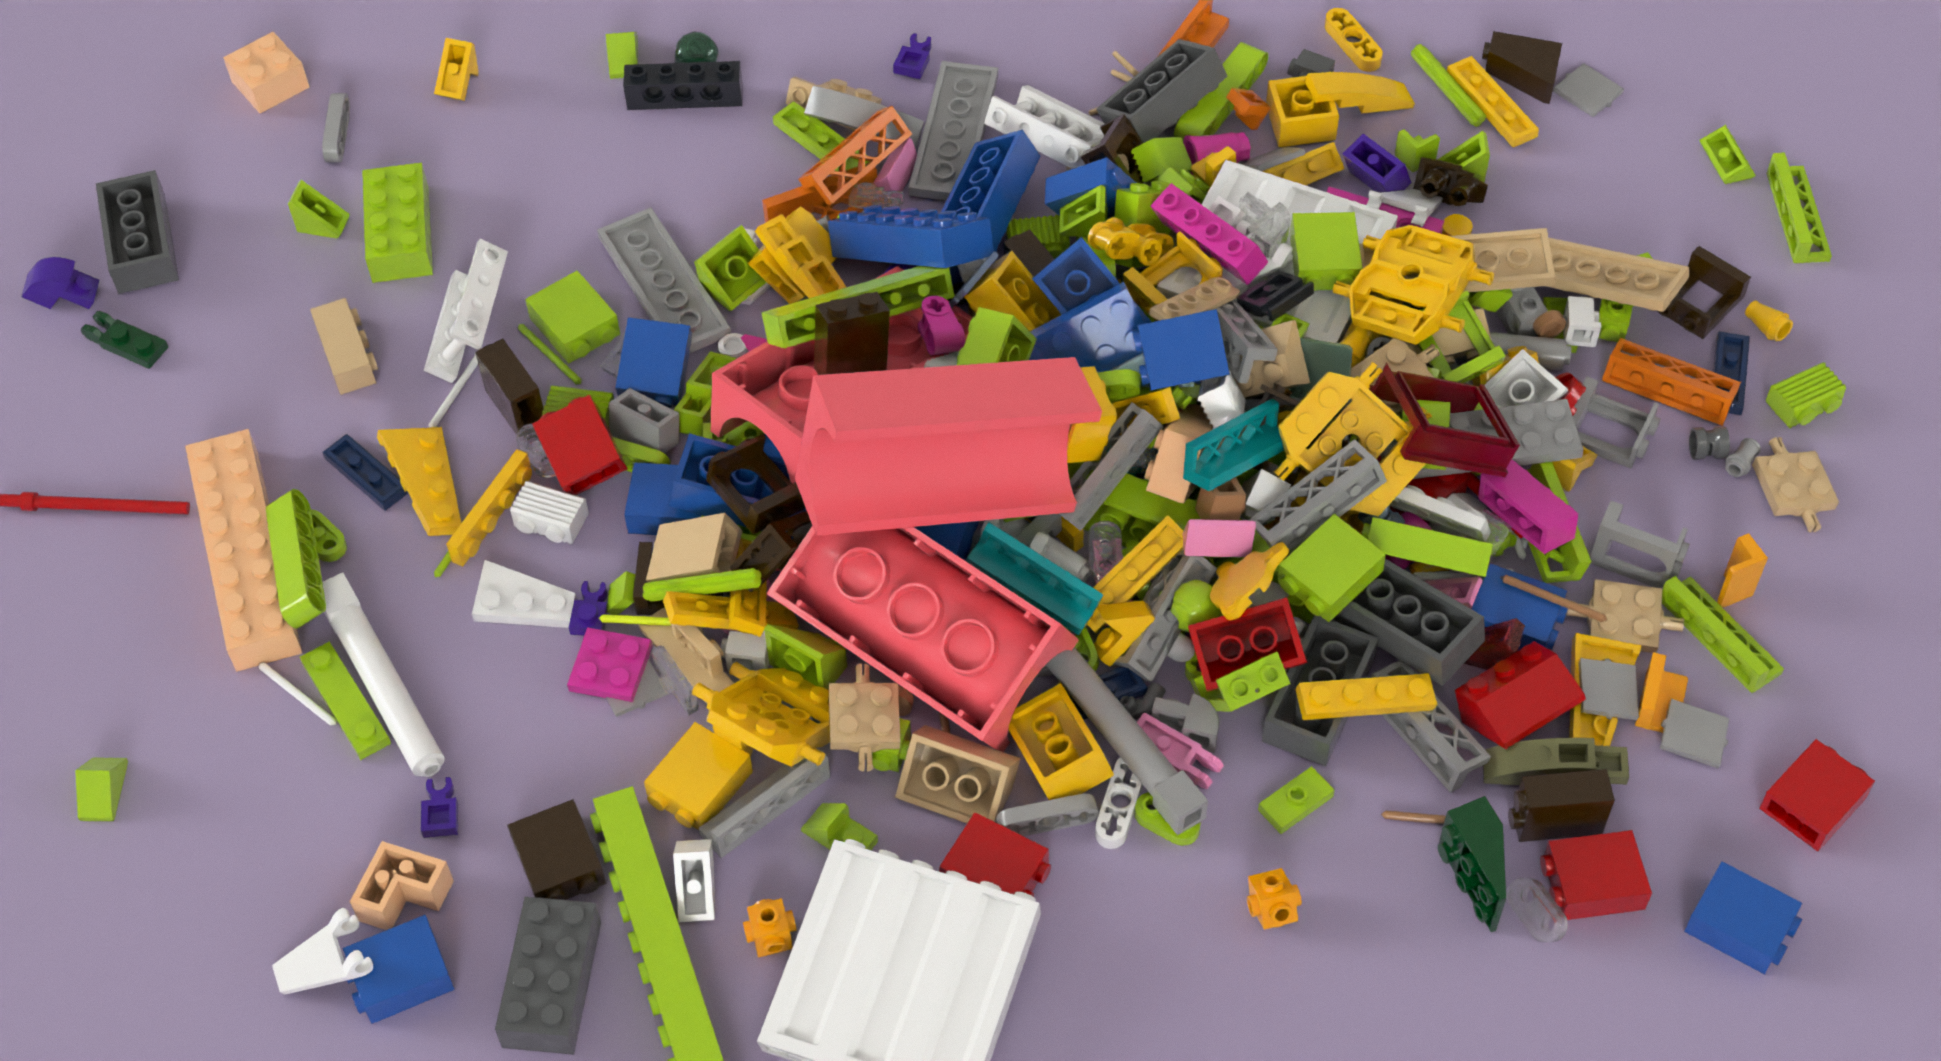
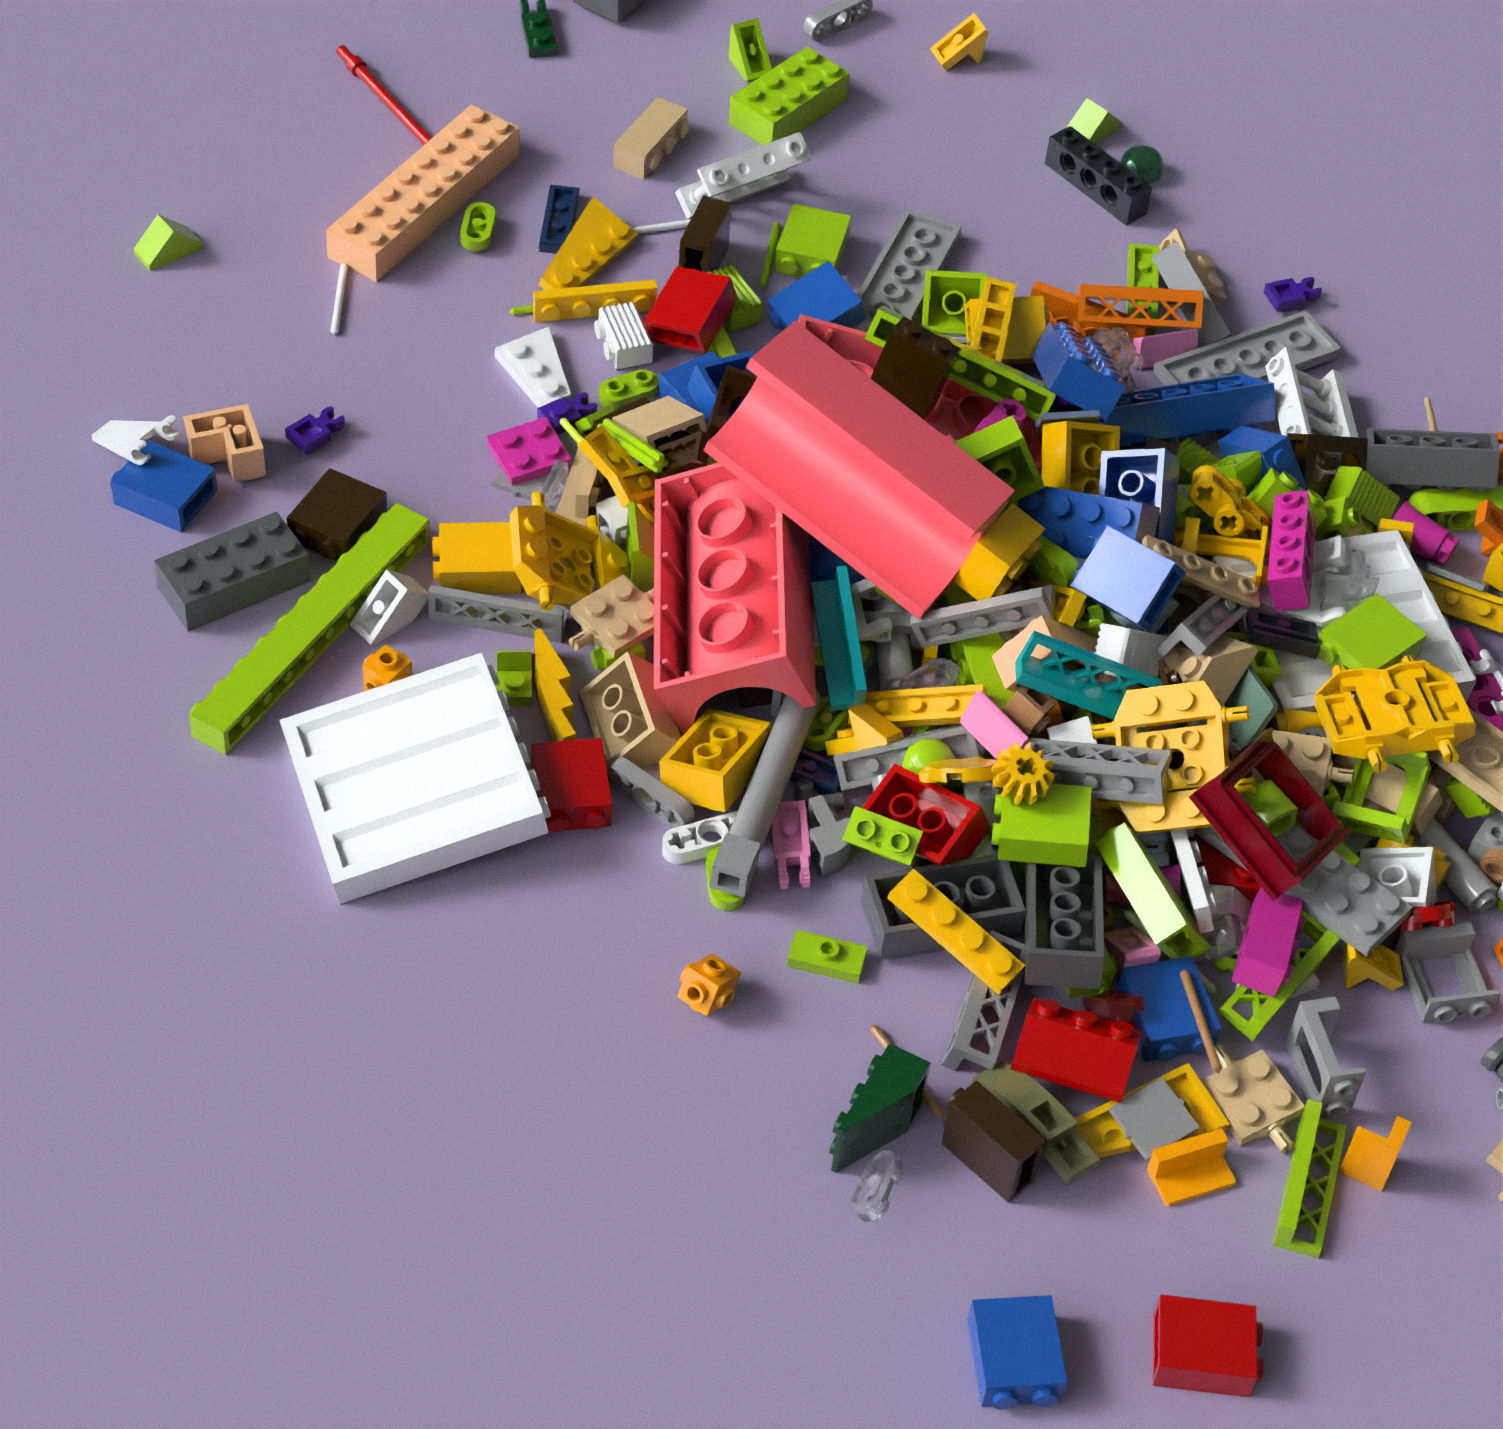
camera: 45 degrees right, 5 degrees down
(295, 558) = (435, 217): lime beam -> none
(345, 700) = (357, 326): lime plate -> none
(381, 678) = (427, 278): white brick -> none
(604, 546) = (628, 388): none -> lime plate
(643, 421) = (754, 327): light grey brick -> none
(899, 823) = (553, 689): none -> yellow slope
(1298, 547) = (1029, 786): none -> yellow gear
(1596, 875) = (953, 1212): red brick -> none
(1694, 733) = (1180, 1217): light grey piece -> none

